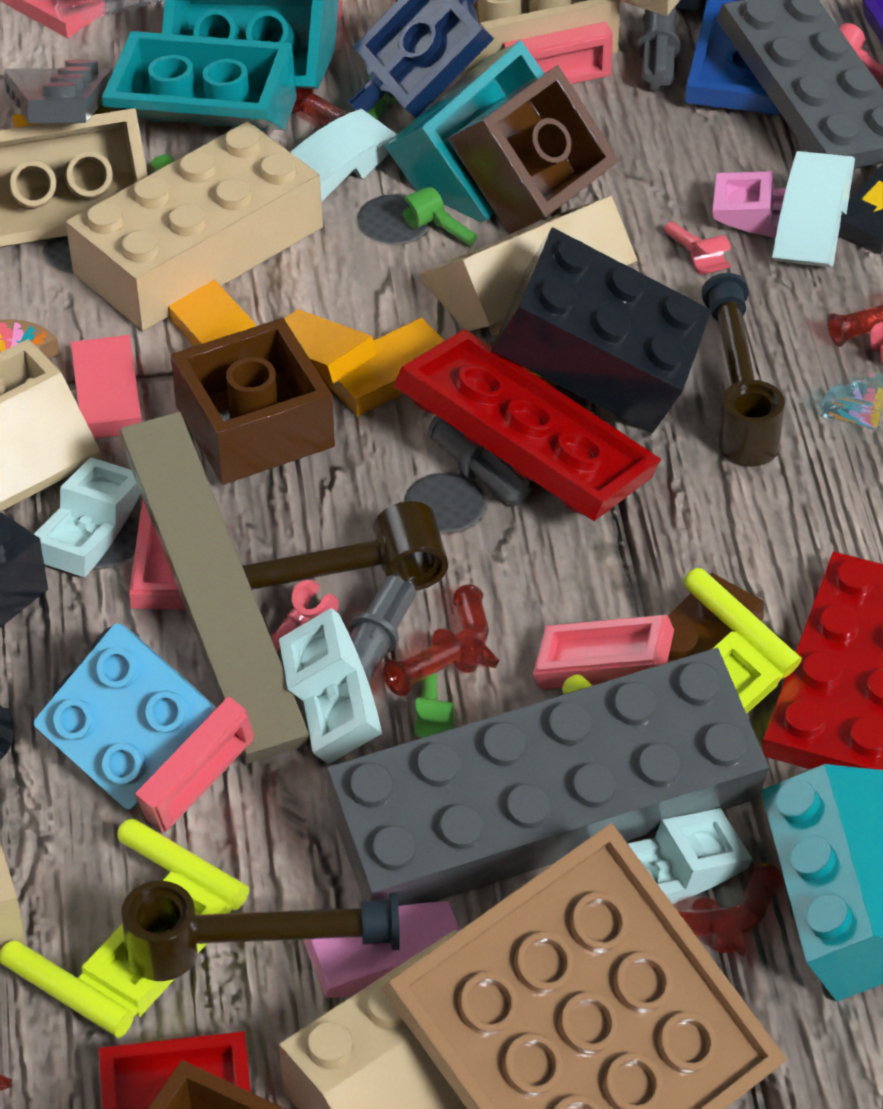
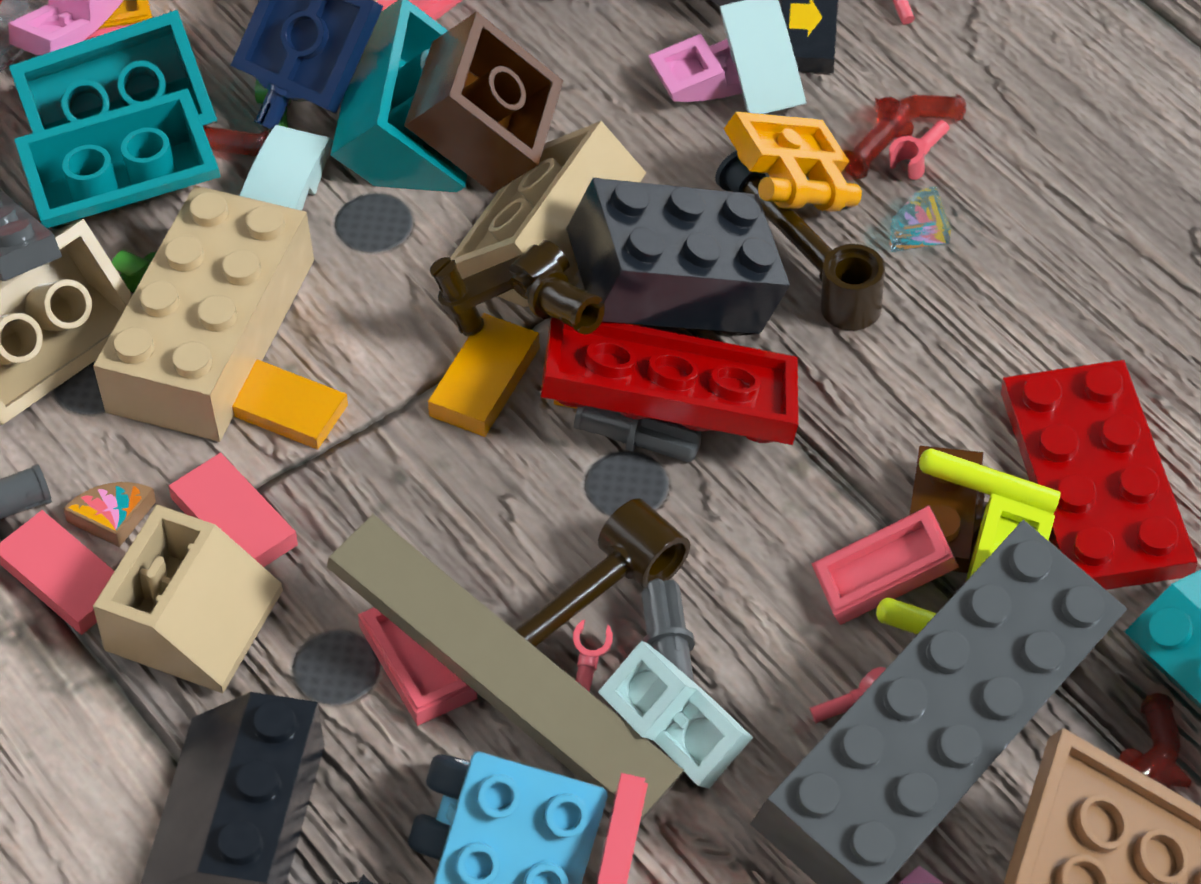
camera: 30 degrees left, 5 degrees up
(90, 516) = (316, 650): light aqua slope -> none
(253, 400) = (403, 463): reddish brown brick -> none
(331, 346) = (410, 385): light orange tile -> none
(427, 207) = (406, 197): bright green hand -> none
(432, 714) = (773, 699): bright green hand -> none
(461, 295) = (533, 275): none -> dark brown pin
(463, 649) = (748, 625): clear red piece -> none
(692, 853) = (1083, 705): light aqua slope -> none
(706, 253) = (687, 140): coral hand -> none
(777, 287) = (789, 152): none -> light orange plate

